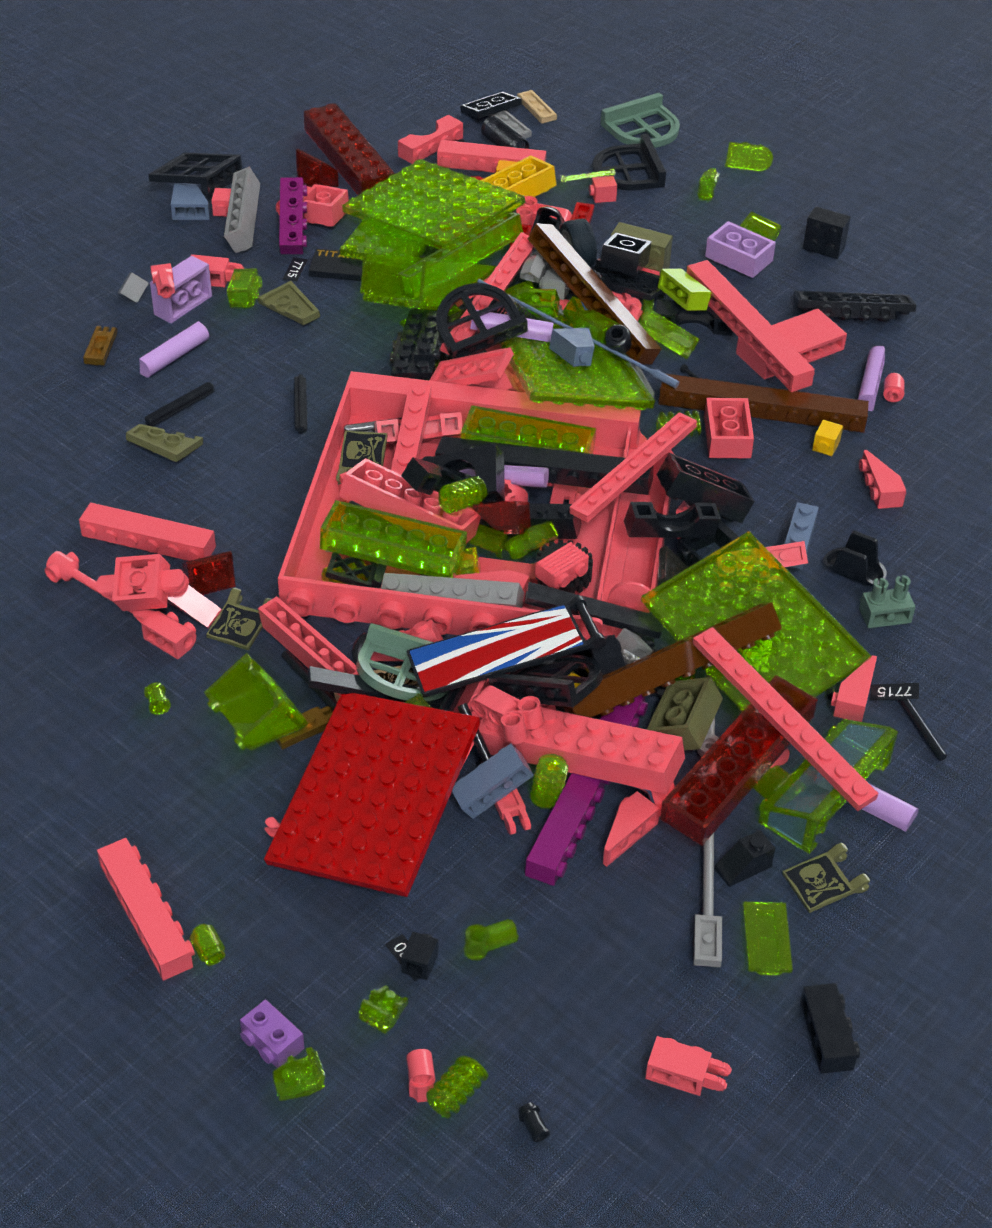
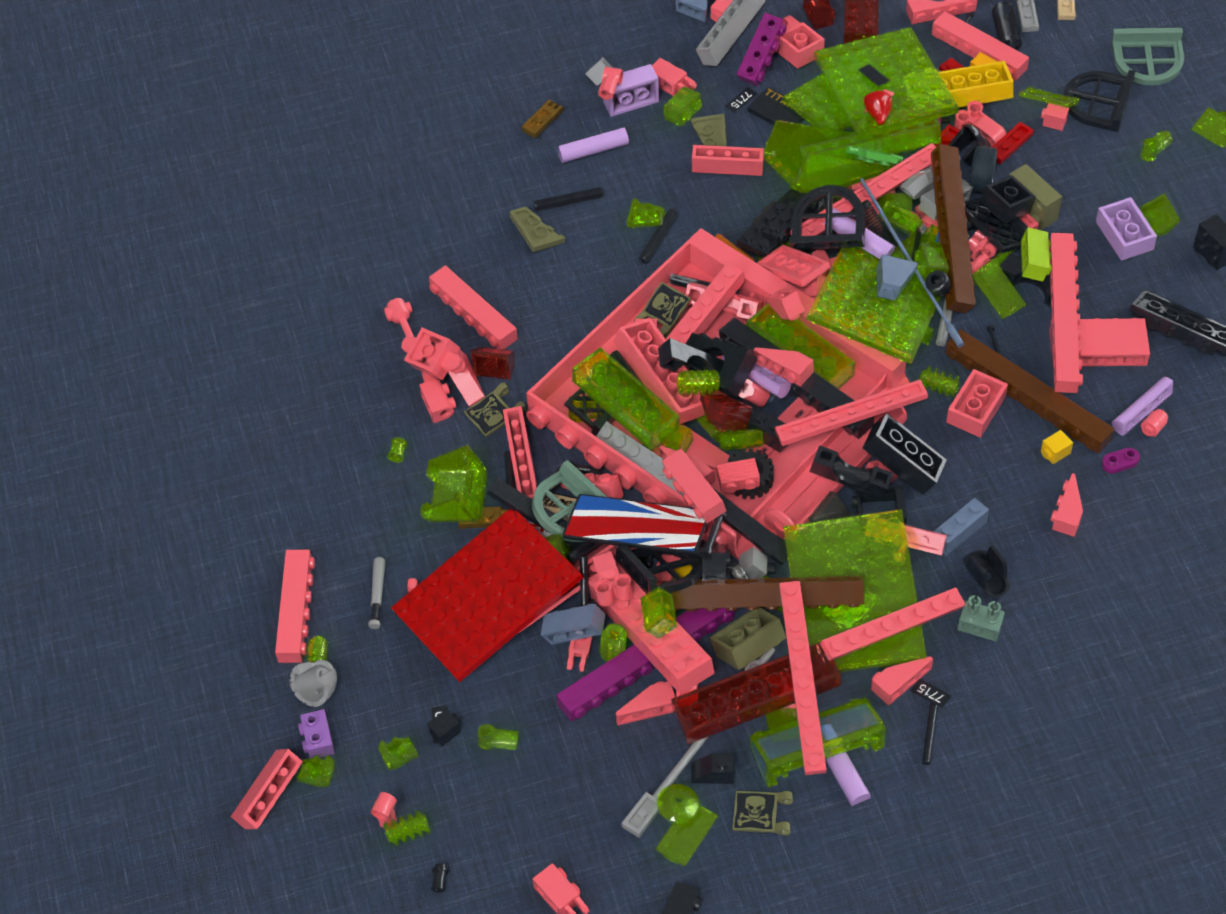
camera: 35 degrees right, 10 degrees up
(231, 977) = (313, 682): none -> light grey hair
(234, 850) = (377, 589): none -> light grey piece
(253, 1126) = (266, 789): none -> coral brick
(275, 389) = (644, 214): none -> clear neon green wing
(325, 315) = (727, 160): none -> coral brick
(421, 199) = (874, 75): none -> black sticker
(453, 212) = (879, 105): none -> red hat
(477, 255) = (874, 156): none -> bright green plate
(493, 400) = (786, 304): none -> coral slope
(534, 450) = (788, 364): none -> coral slope
(536, 584) = (693, 485): none -> coral brick
(595, 716) = (658, 612): none -> clear neon green brick
(737, 910) = (678, 811): none -> clear neon green dish
(822, 636) = (892, 624): none -> coral plate
(889, 429) = (1121, 459): none -> magenta plate

